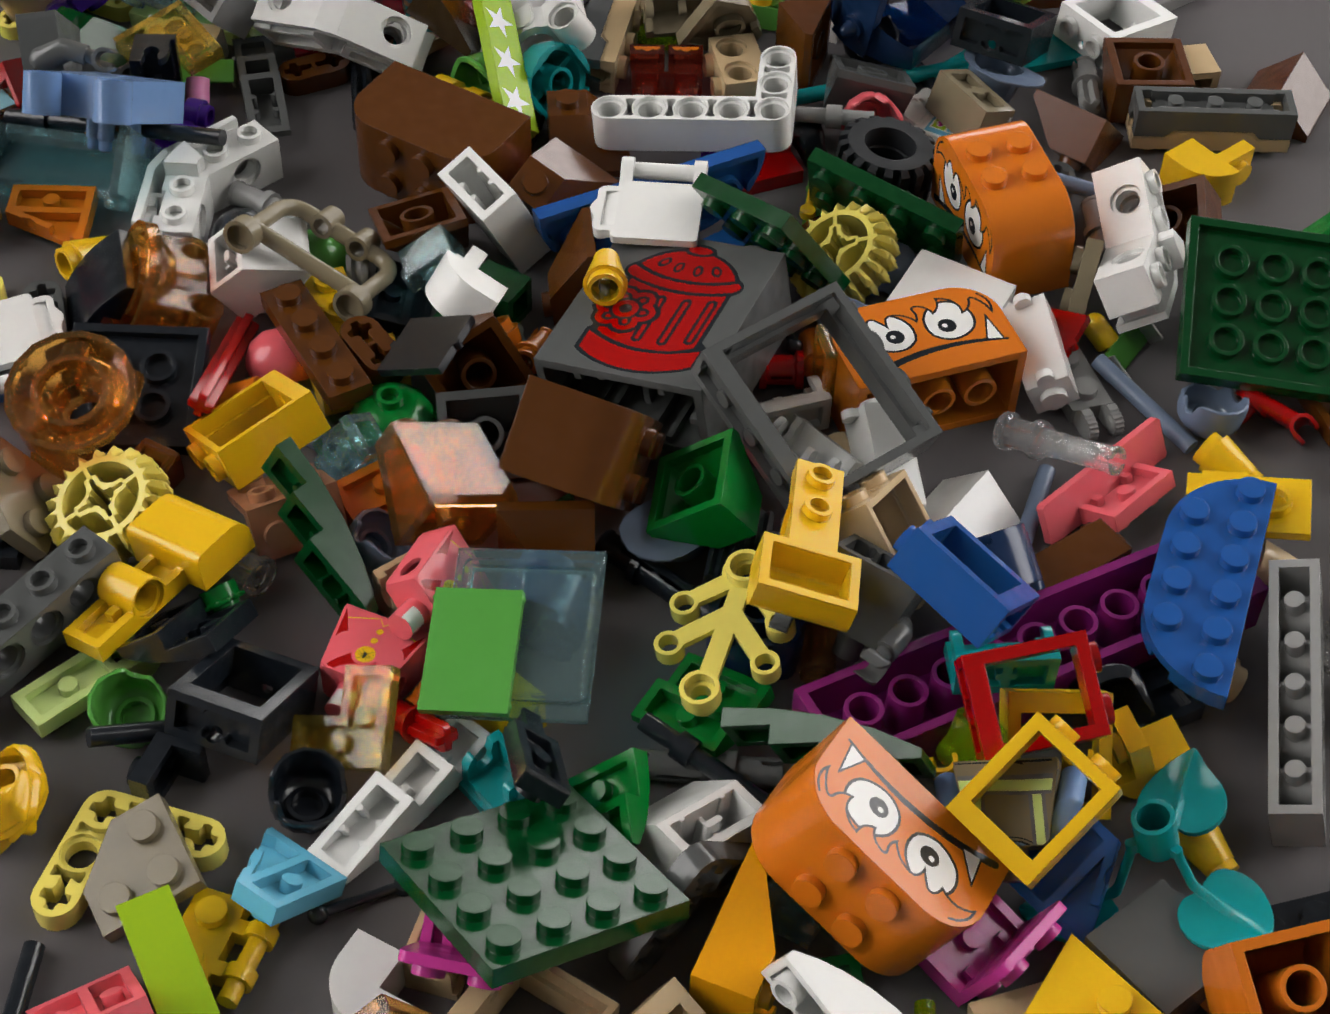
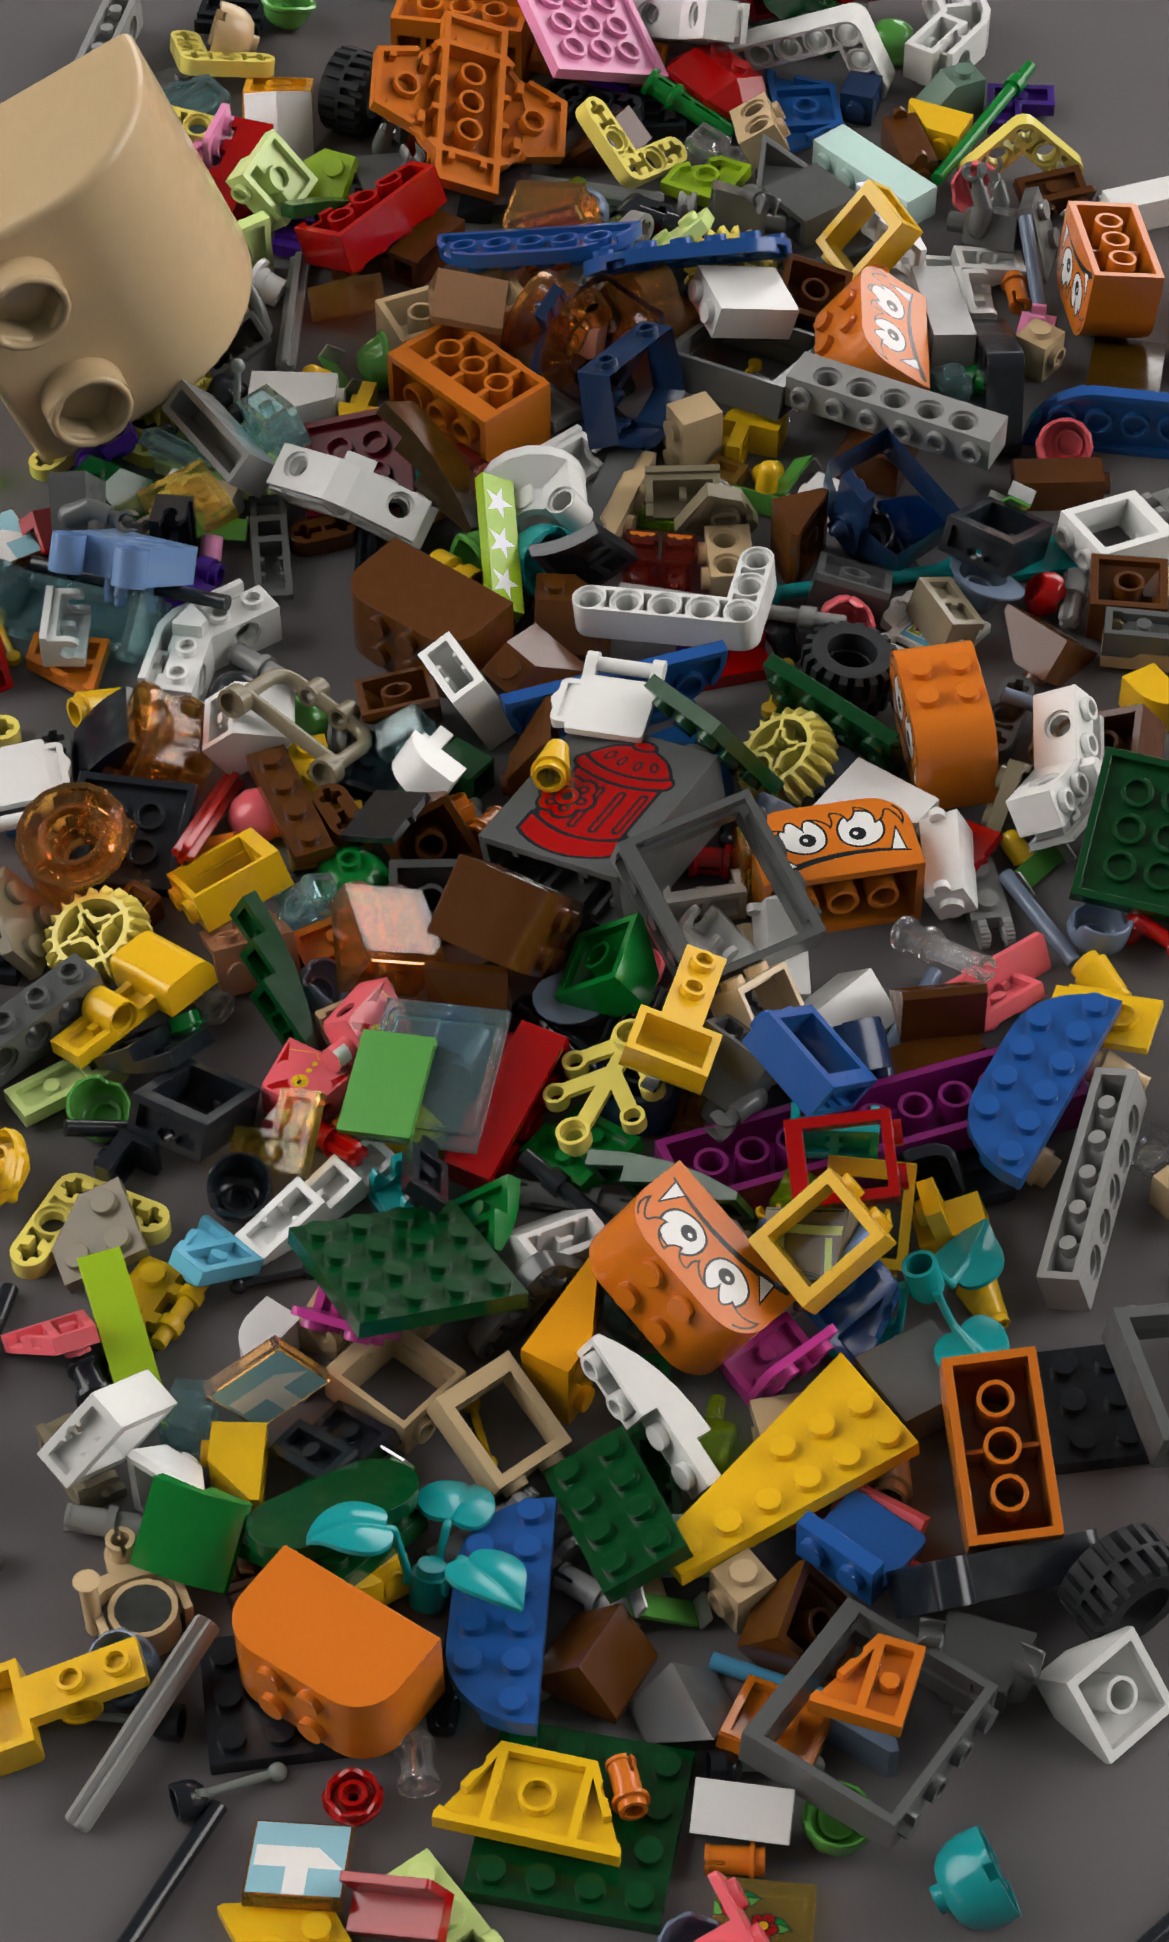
camera: 10 degrees right, 0 degrees up
(45, 177) = (64, 628): none -> white hinge
(599, 65) = (589, 553): none -> black plate
(630, 618) = (516, 1106): none -> red wedge
(1062, 79) = (1044, 593): none -> red plate
(1078, 509) = (939, 1010): none -> reddish brown slope

